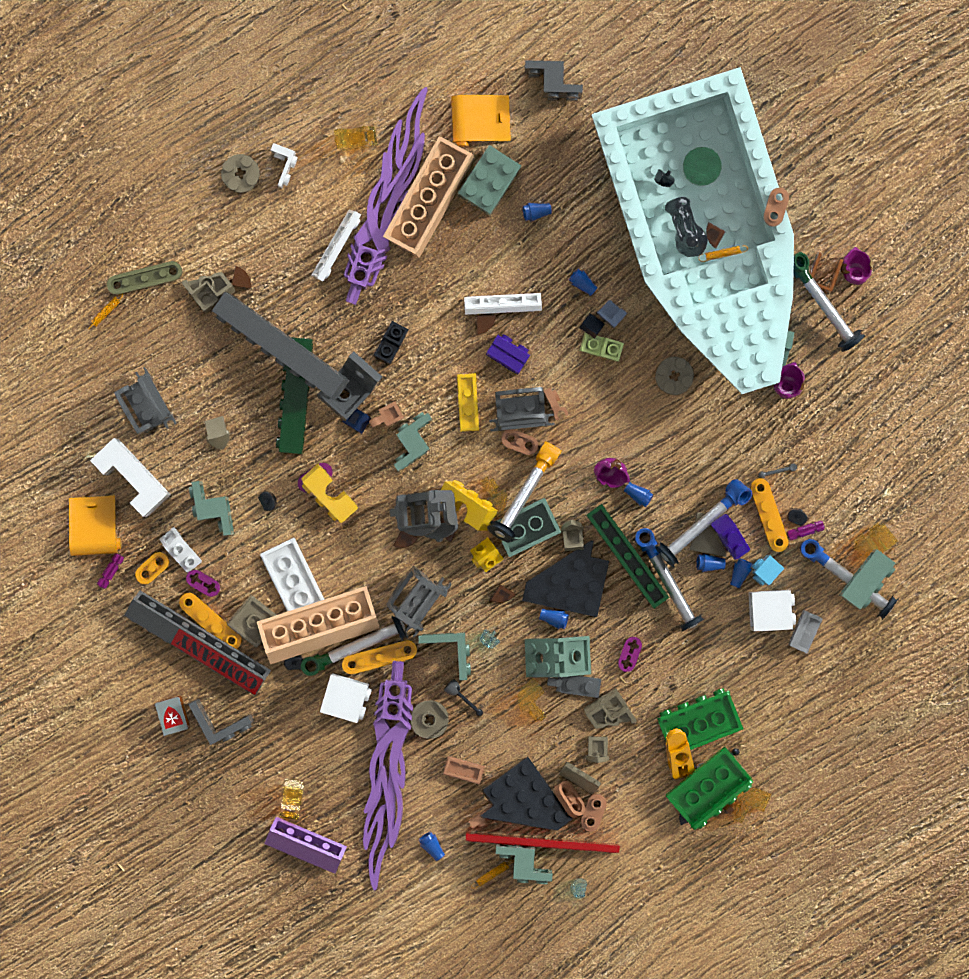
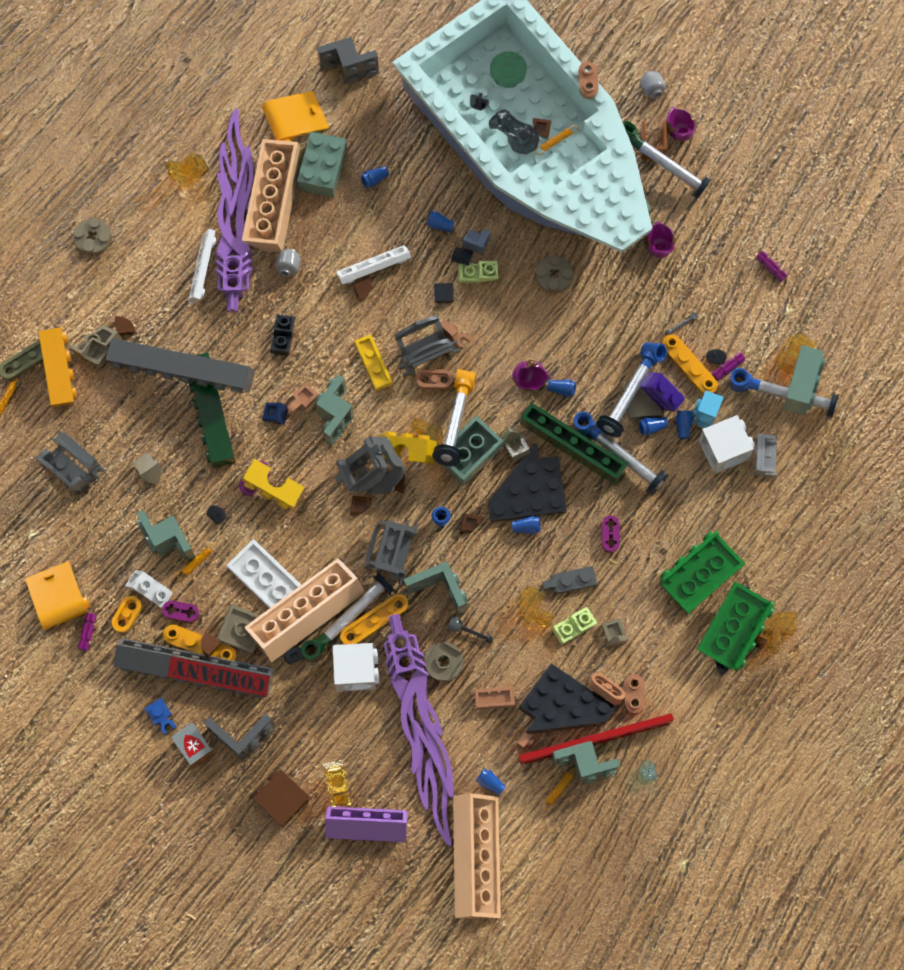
camera: 15 degrees left, 15 degrees down
(117, 456) = (100, 541): white piece -> none
(152, 672) = (159, 714): none -> blue plate
(163, 301) = (56, 367): none -> light orange brick
(218, 627) = (209, 644): none -> reddish brown tile
(233, 539) = (196, 561): none -> light orange piece
(236, 793) = (281, 798): none -> reddish brown brick
(282, 153) = (127, 204): white bracket -> none
(361, 384) = (267, 379): dark grey bracket -> none
(394, 909) = (476, 856): none -> light nougat slope
(420, 272) = (287, 263): none -> light grey head
(470, 583) = (441, 512): none -> blue cone
(486, 555) = (441, 489): yellow brick -> none
(489, 639) = (472, 568): clear light blue piece -> none
(508, 354) = (394, 306): dark purple brick -> none
(557, 657) = (544, 558): sand green bracket -> none
(560, 356) = (443, 292): none -> black tile
(562, 729) = (574, 626): none -> yellowish green slope
(579, 778) = (609, 664): dark tan slope -> none
(609, 710) = (612, 592): dark tan slope -> none
(679, 754) = (687, 594): light orange piece -> none
(846, 213) = (652, 85): none -> light grey head
(888, 444) = (771, 266): none -> magenta axle

